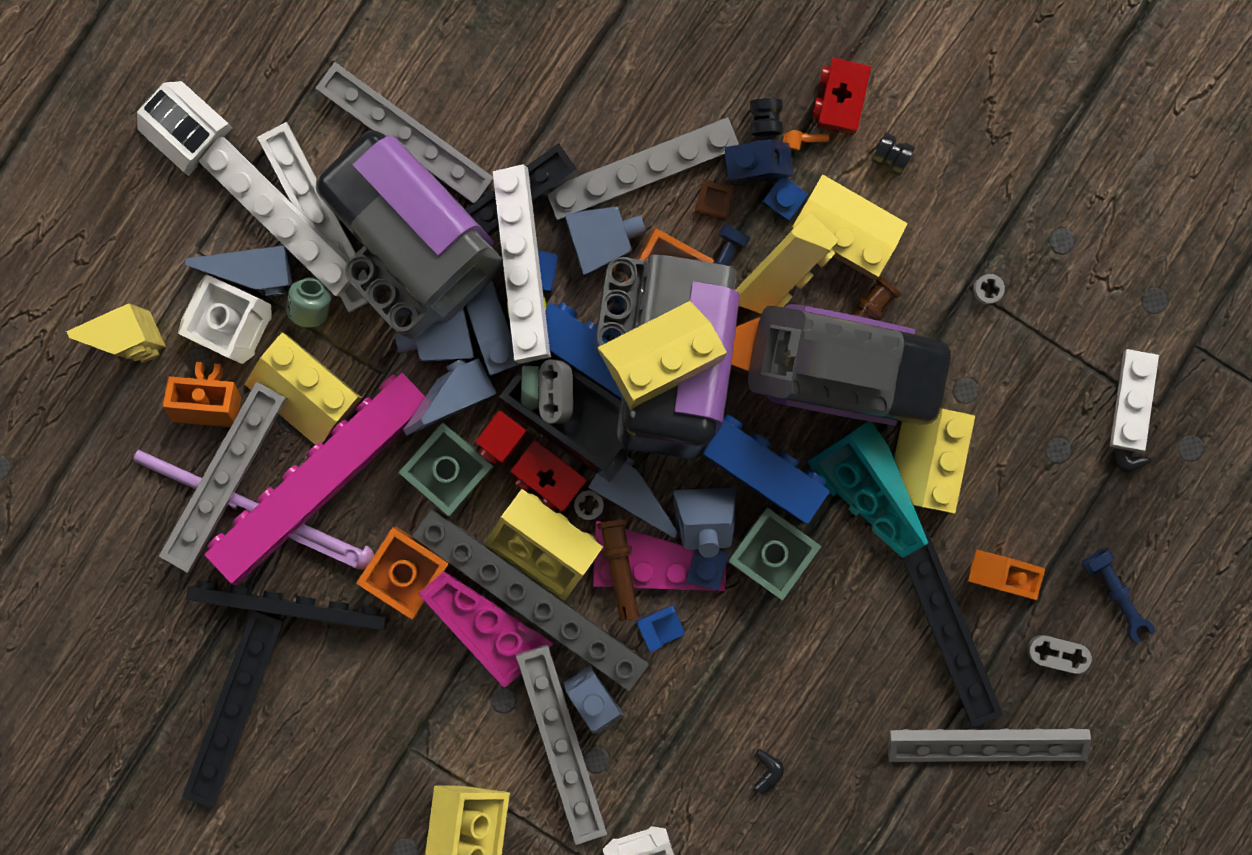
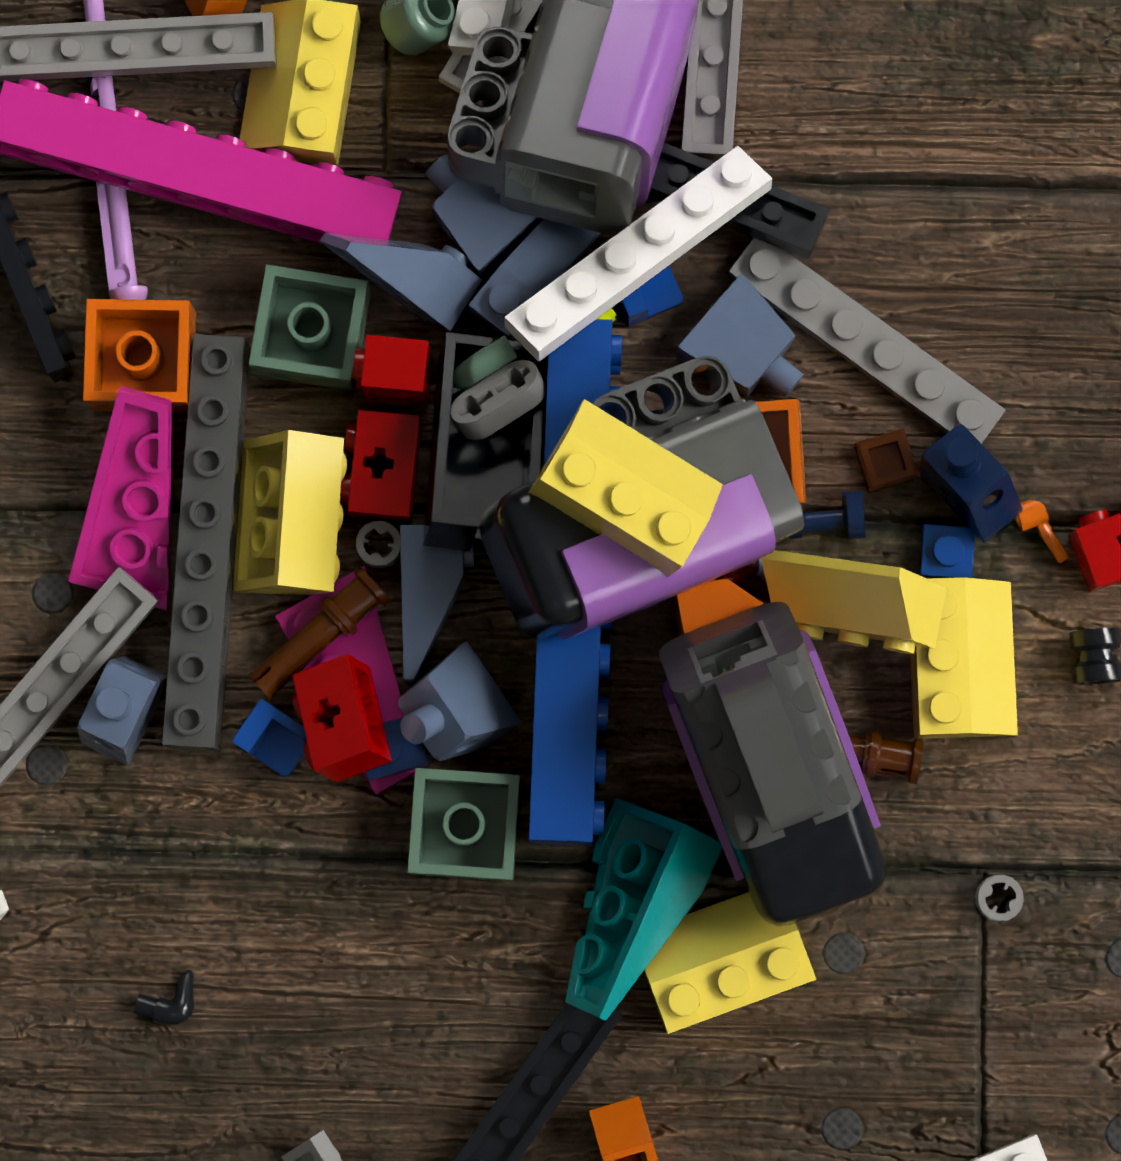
camera: 65 degrees right, 5 degrees down
(691, 587) = (340, 718): none -> red brick
(766, 117) = (1038, 459): black wheel -> none

